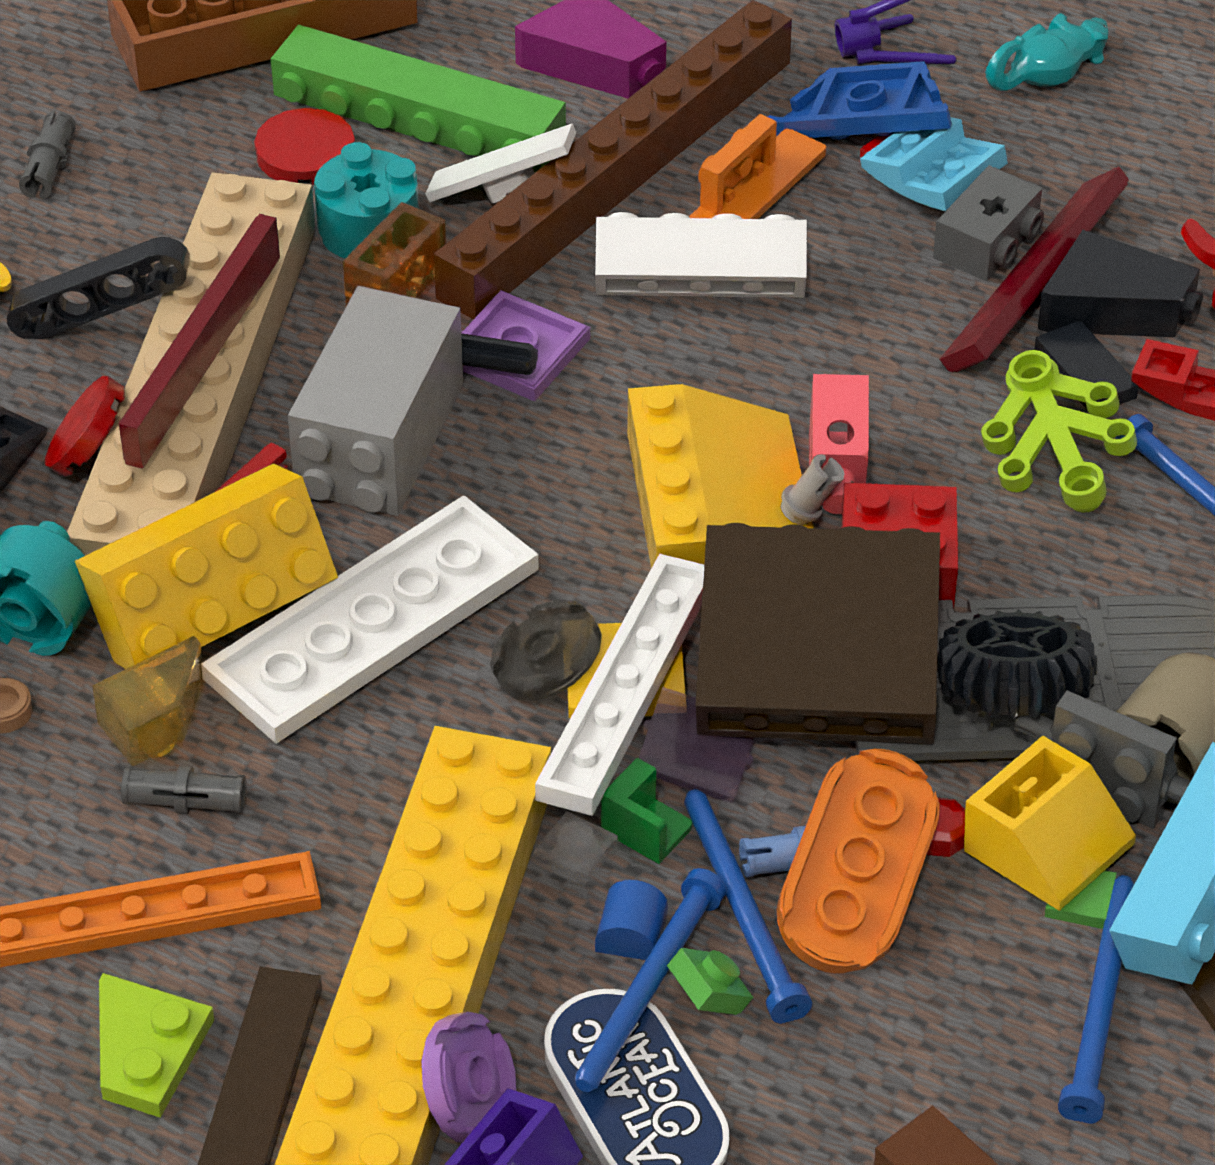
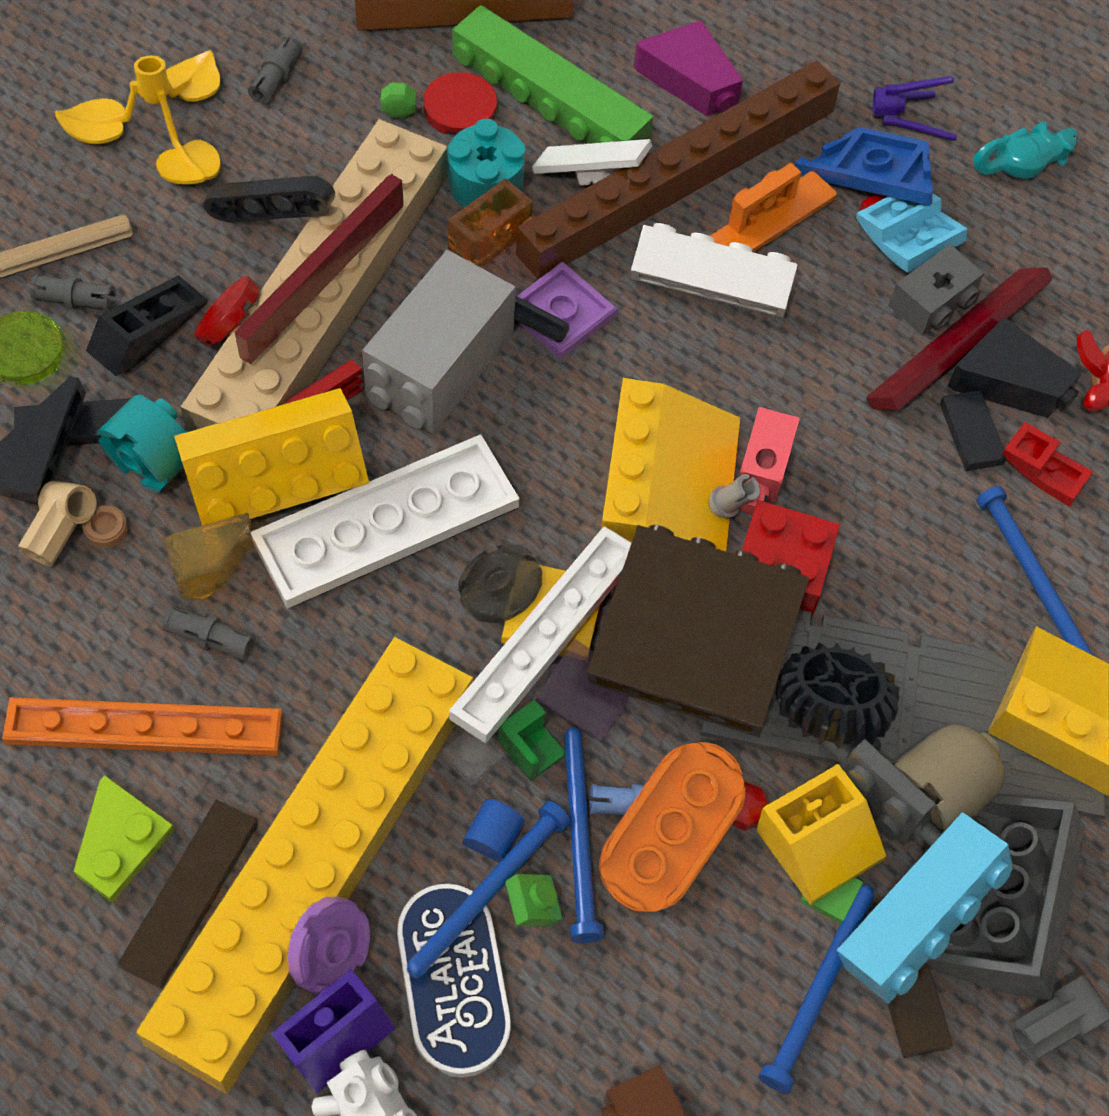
camera: 10 degrees right, 15 degrees up
(224, 153) = (398, 100): none -> bright green tile
(1036, 379) = (932, 479): lime plant -> none

